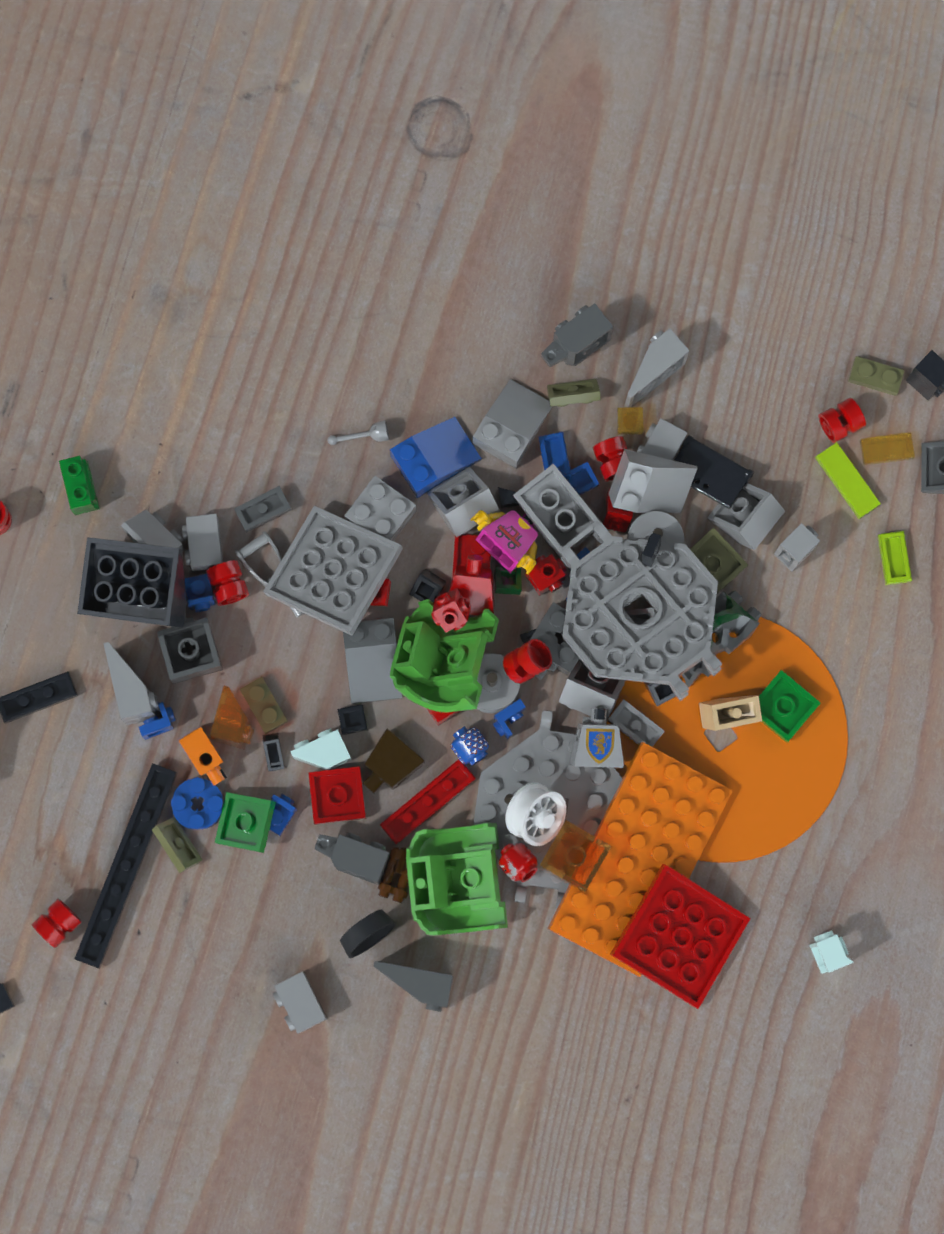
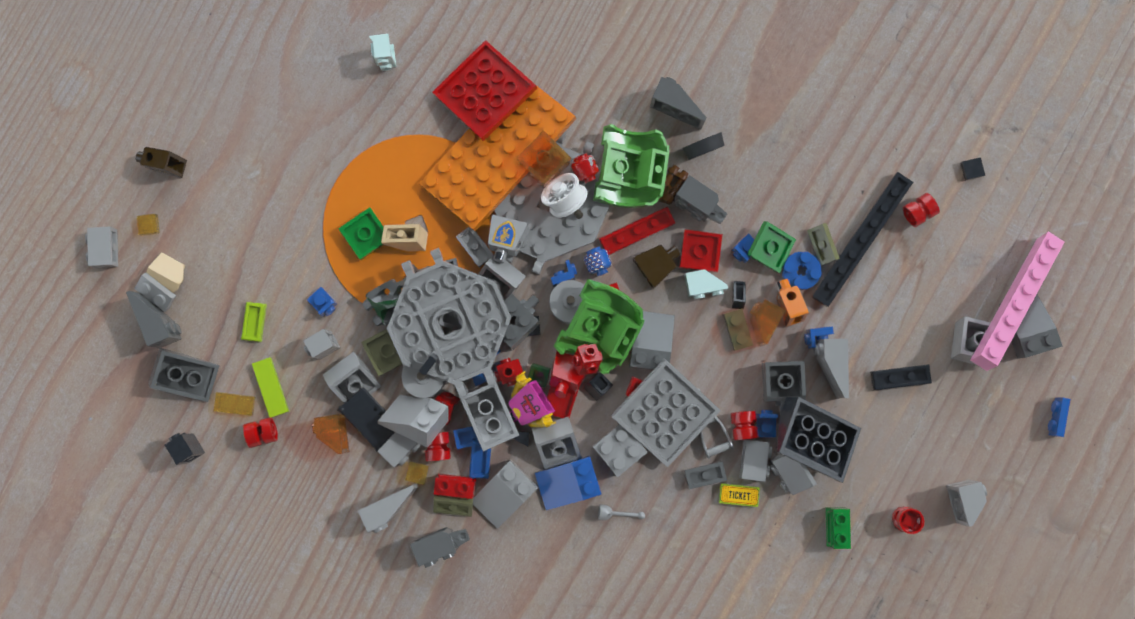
camera: 160 degrees left, 5 degrees up
(213, 495) = (739, 495): none -> tile
(300, 1003) = (761, 112): light grey brick -> none
(352, 719) = (676, 303): black tile -> none
(527, 661) = (541, 307): red wheel -> none
(577, 415) = (455, 486): none -> red window
(751, 441) = (332, 432): none -> clear orange slope
(813, 604) = (322, 302): none -> blue bracket
(876, 376) = (225, 461): olive plate -> none

